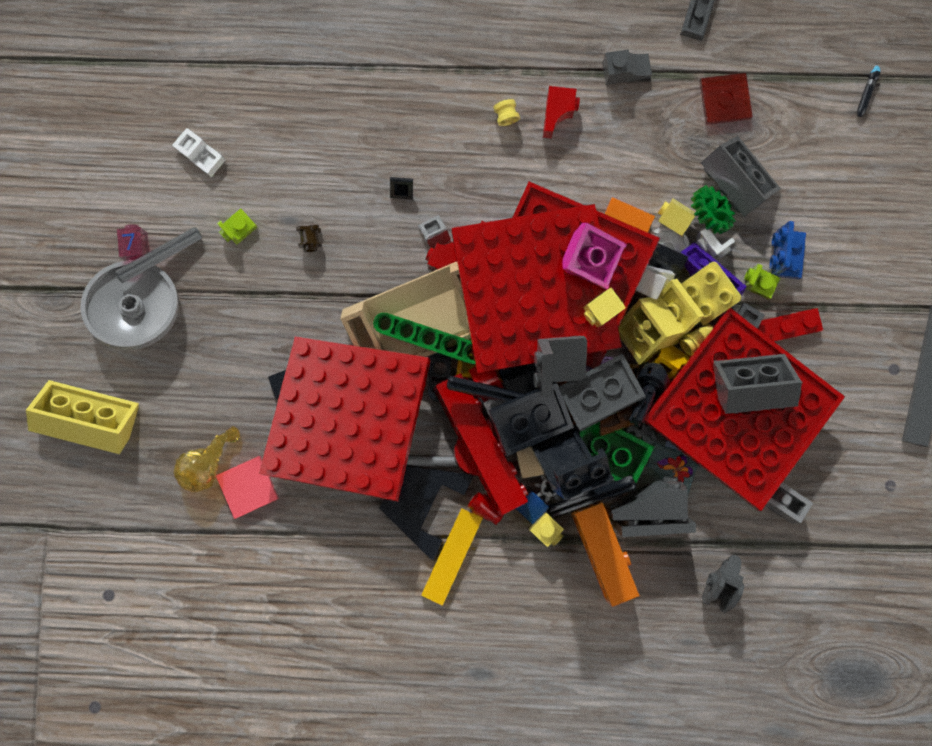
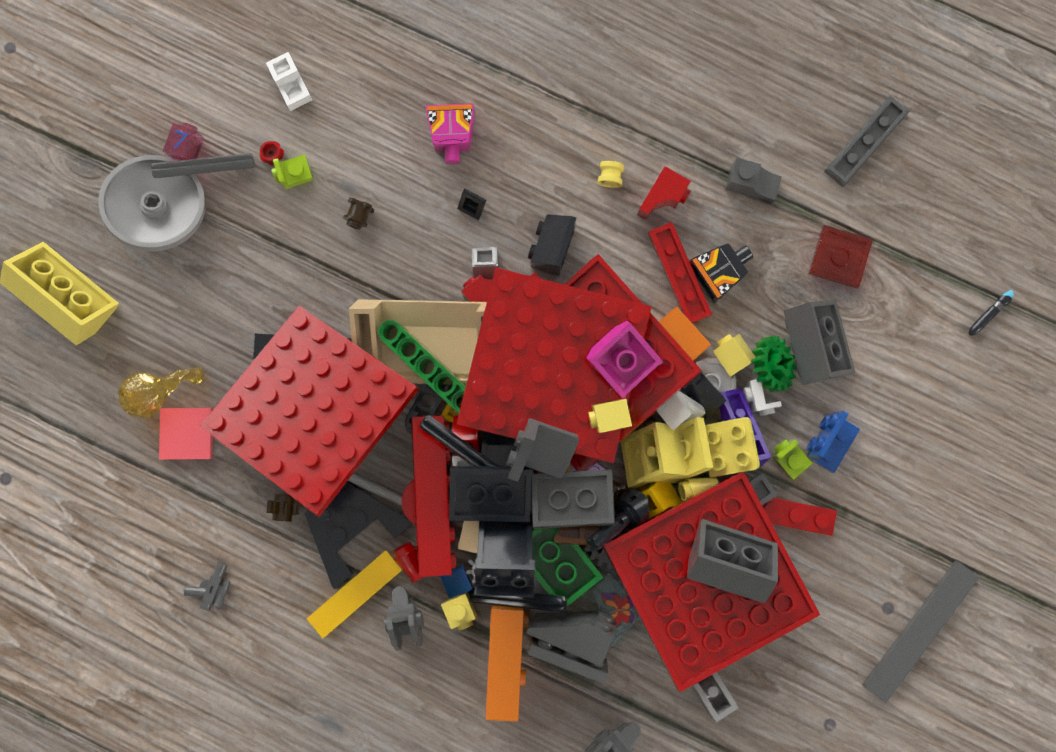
camera: 30 degrees right, 0 degrees up
(211, 213) = (265, 150): none -> red plate
(329, 608) = (211, 590): none -> dark grey piece
(355, 133) = (451, 129): none -> dark pink torso
(359, 511) = (283, 507): none -> dark brown gear
(485, 190) = (553, 243): none -> black slope
(503, 556) = (403, 619): none -> dark grey hinge
(600, 168) = (679, 272): none -> red plate
(633, 152) = (721, 269): none -> black torso

